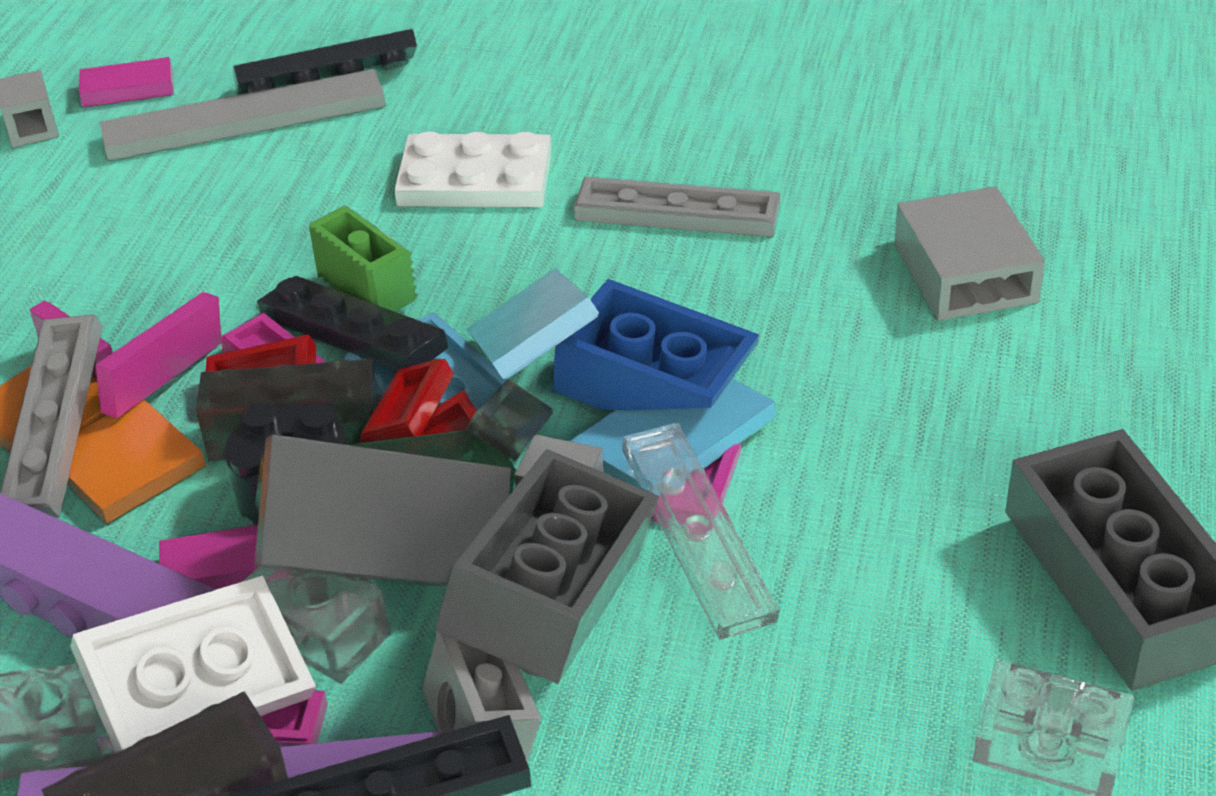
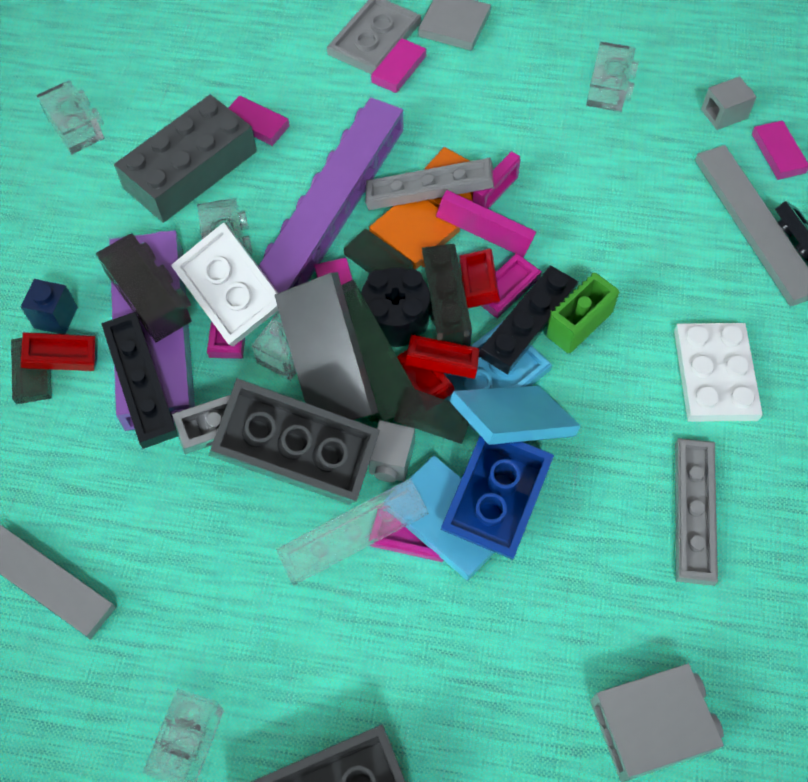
camera: 85 degrees right, 20 degrees up
(170, 506) = (374, 254): none -> clear smoke tile

